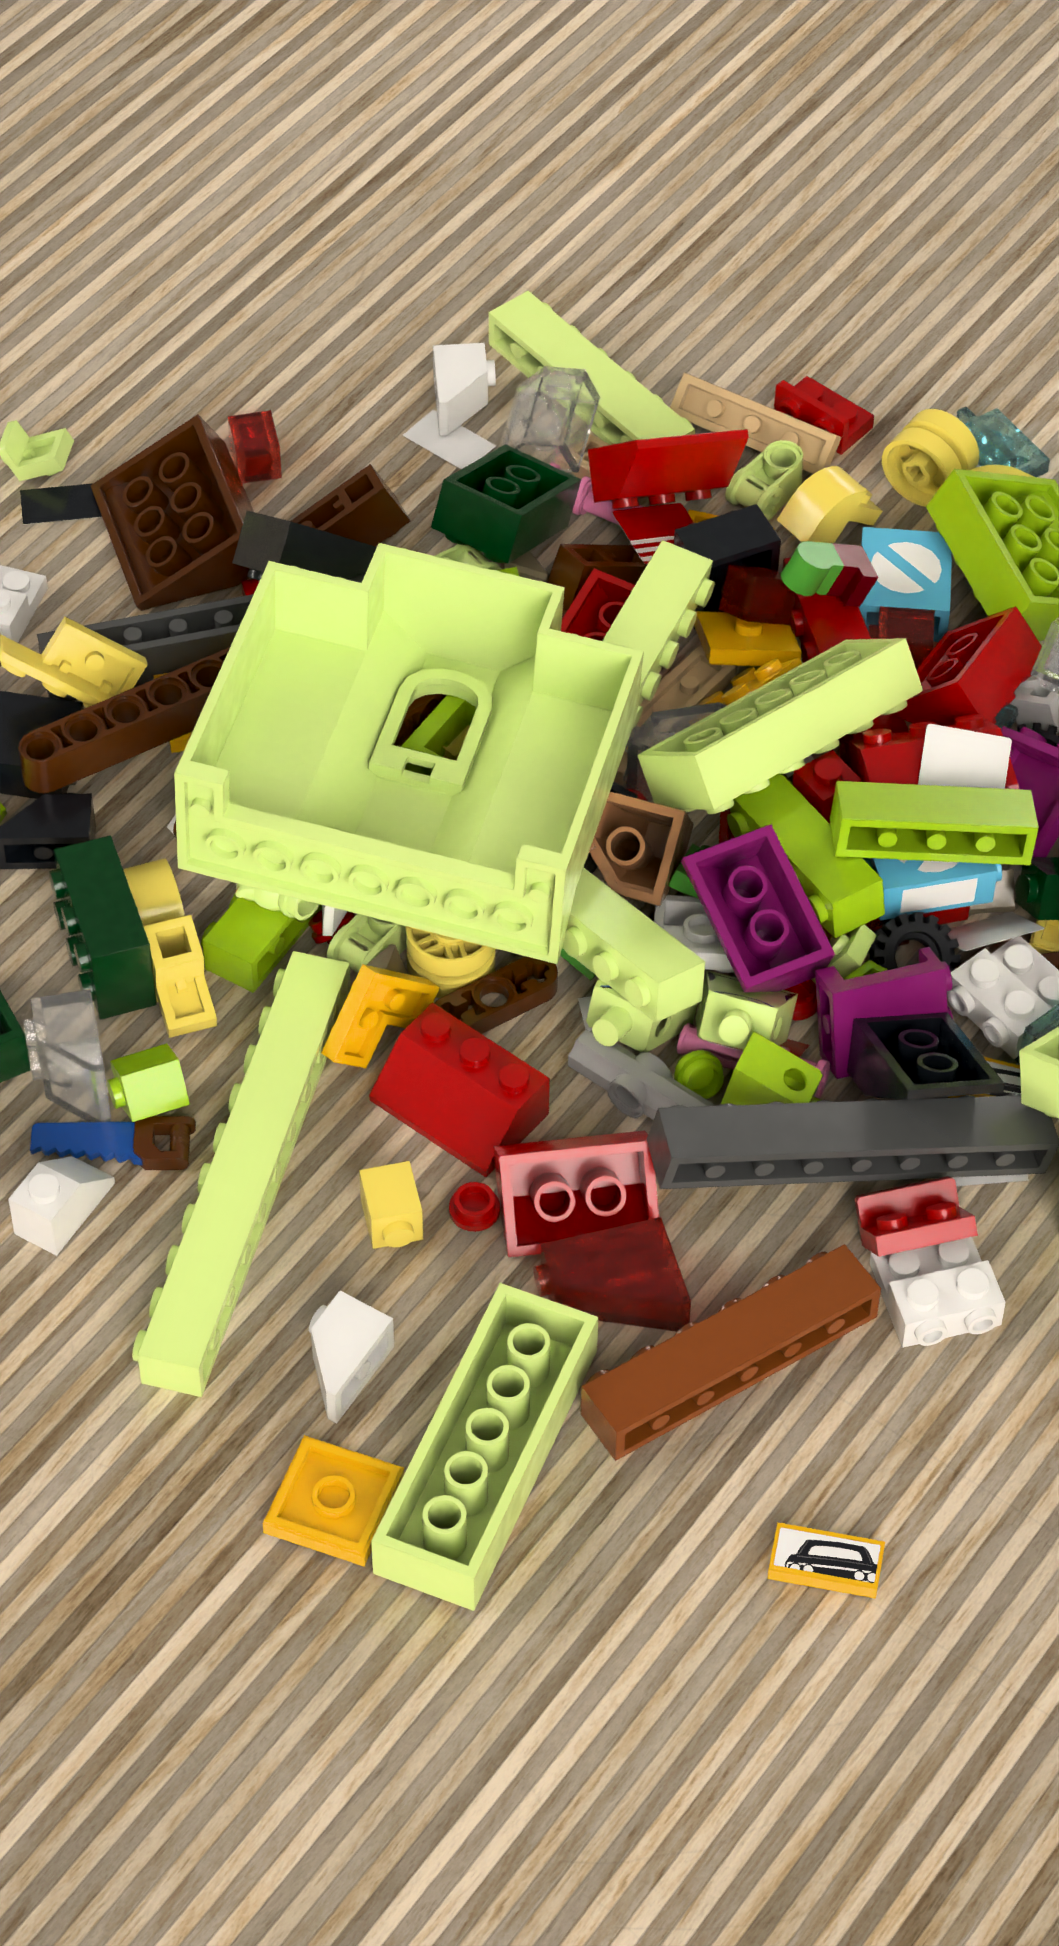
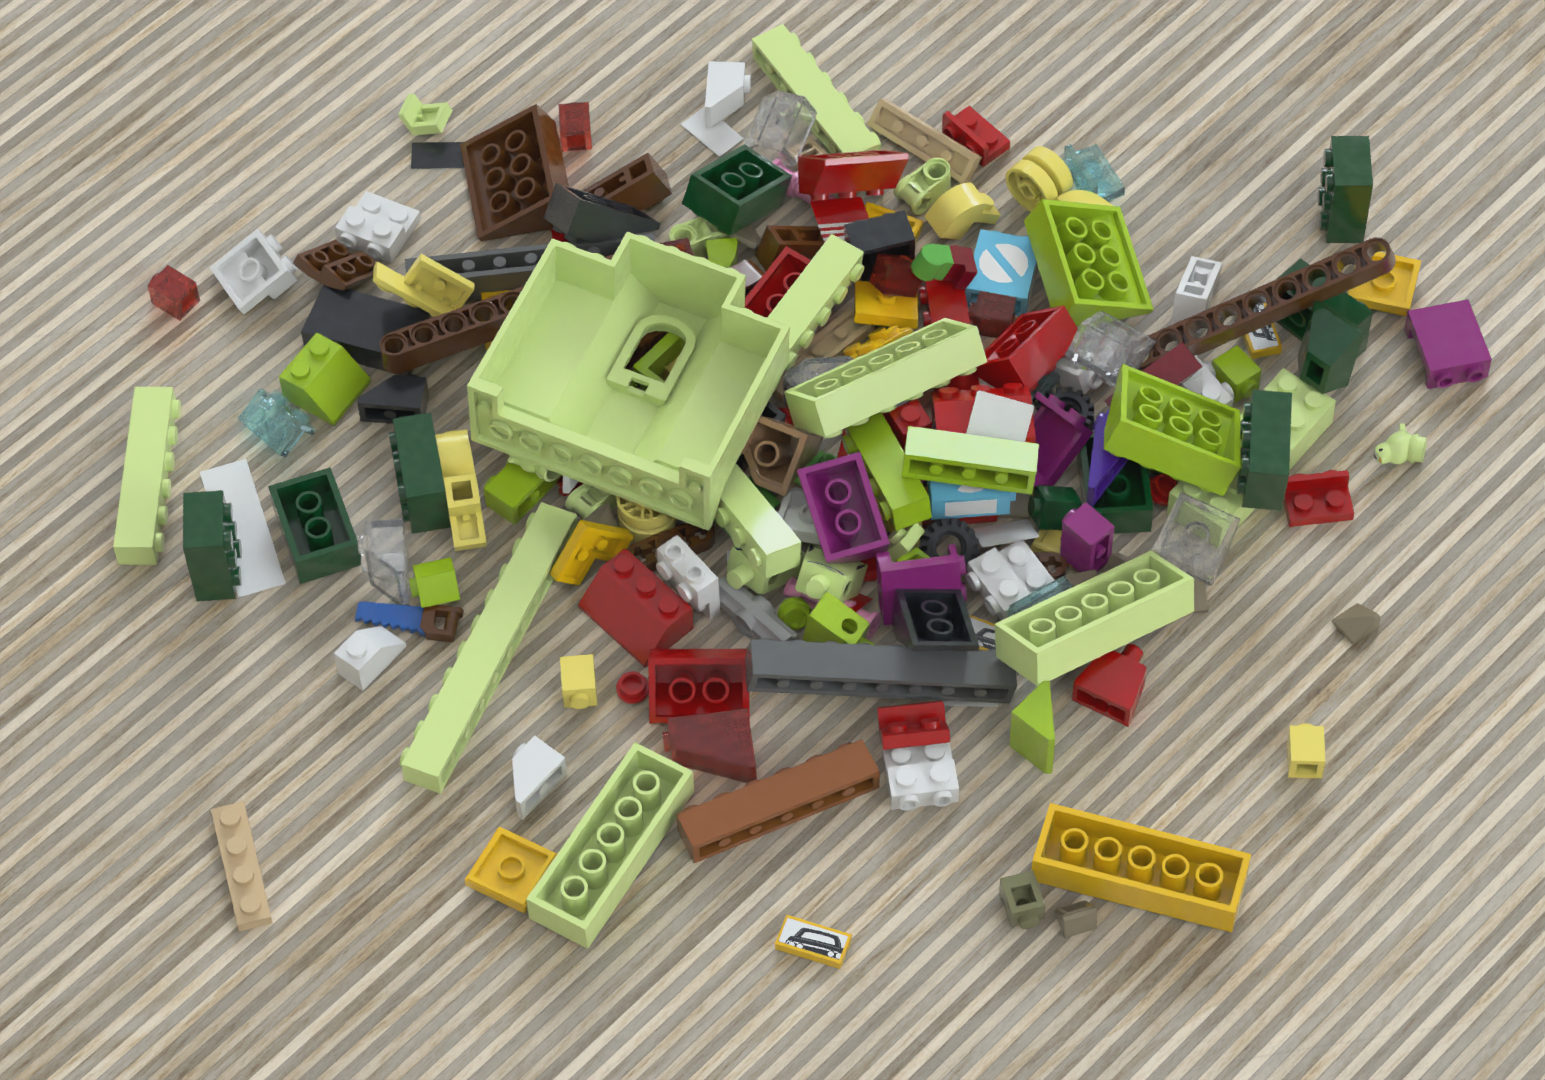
camera: 10 degrees right, 5 degrees up
(538, 1033) = (689, 576): none -> white plate

